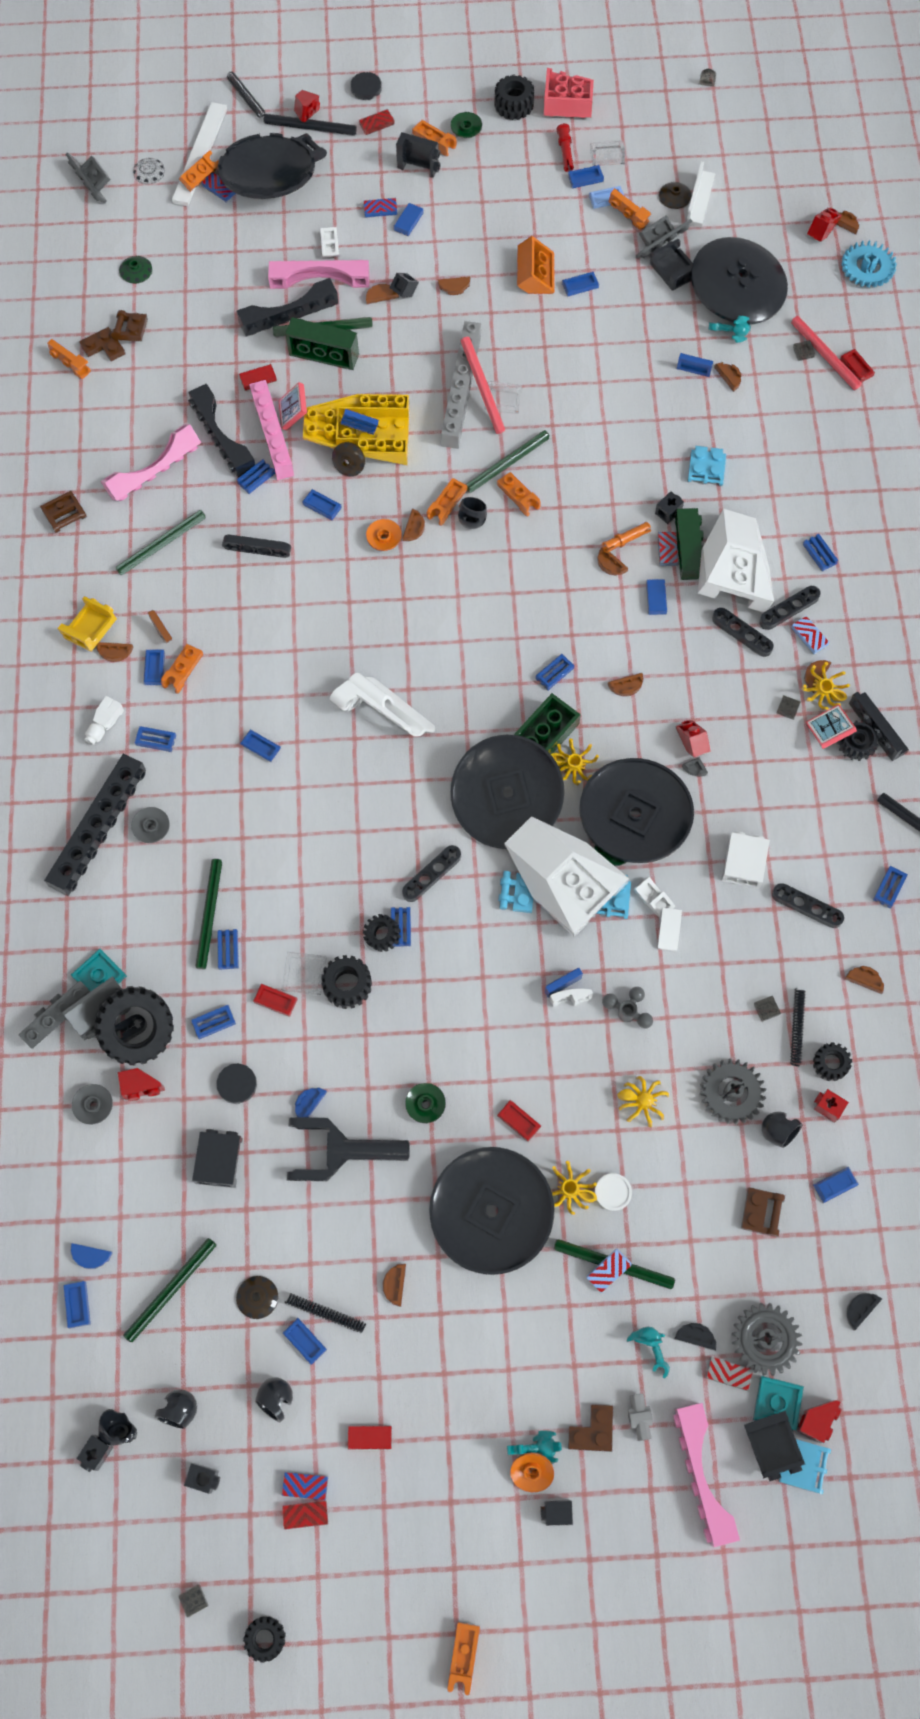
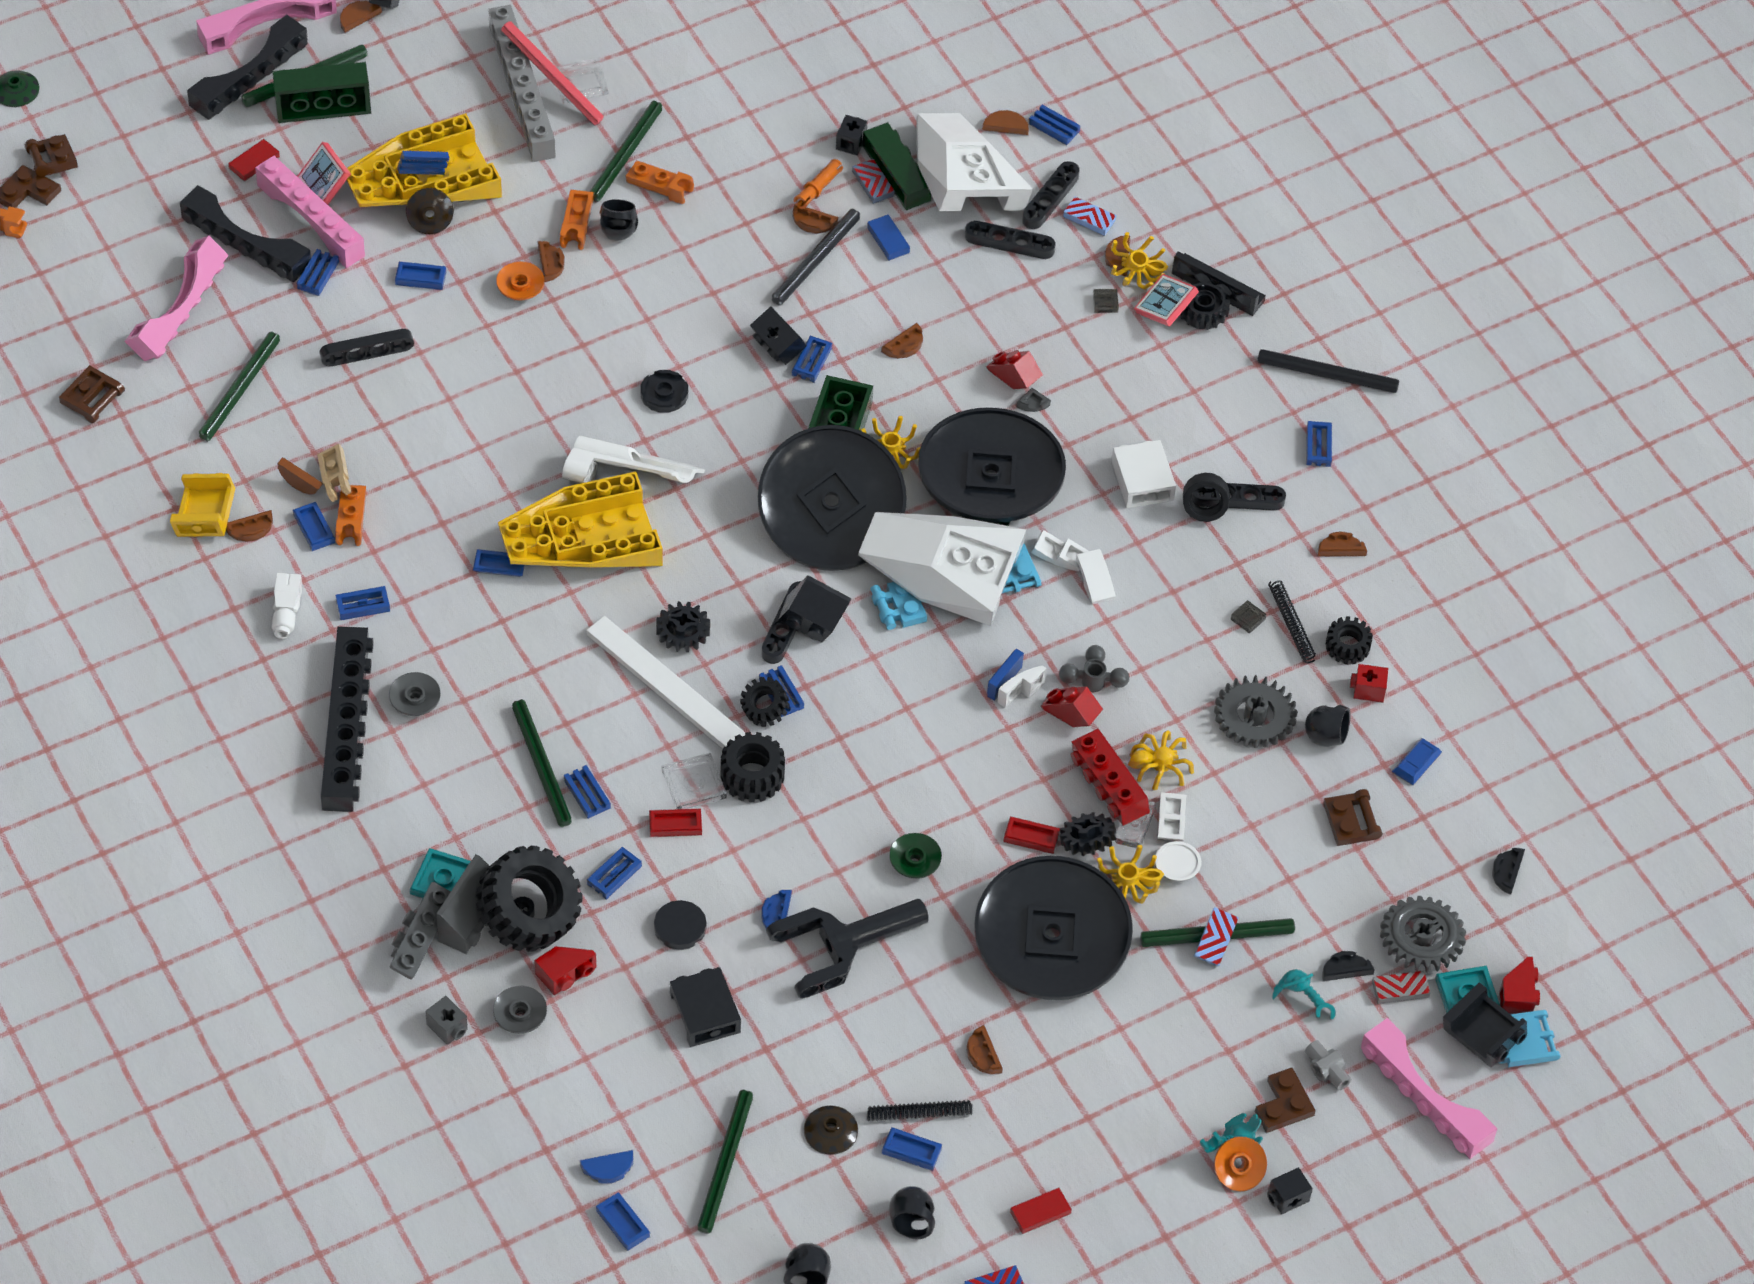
camera: 30 degrees left, 15 degrees down
(34, 1085) = (446, 1020): none -> dark grey brick
(184, 633) = (334, 471): none -> tan hinge
(324, 888) = (663, 682): none -> white tile
(327, 744) = (585, 527): none -> yellow wedge
(357, 840) = (683, 626): none -> black gear
(440, 657) = (664, 391): none -> black tile
(449, 876) = (814, 608): none -> black slope
(537, 646) = (771, 325): none -> black brick
(557, 1142) = (1088, 834): none -> black gear
(595, 1102) = (1110, 777): none -> red brick
(597, 593) = (815, 256): none -> black axle
(597, 1146) = (1135, 831): none -> clear plate
(599, 1029) = (1073, 706): none -> red slope
(627, 1152) = (1171, 816): none -> white slope
(707, 465) = (870, 74): medium azure plate -> none
(785, 537) = (1006, 122): none -> dark orange tile
(785, 891) = (1206, 480): none -> black tyre

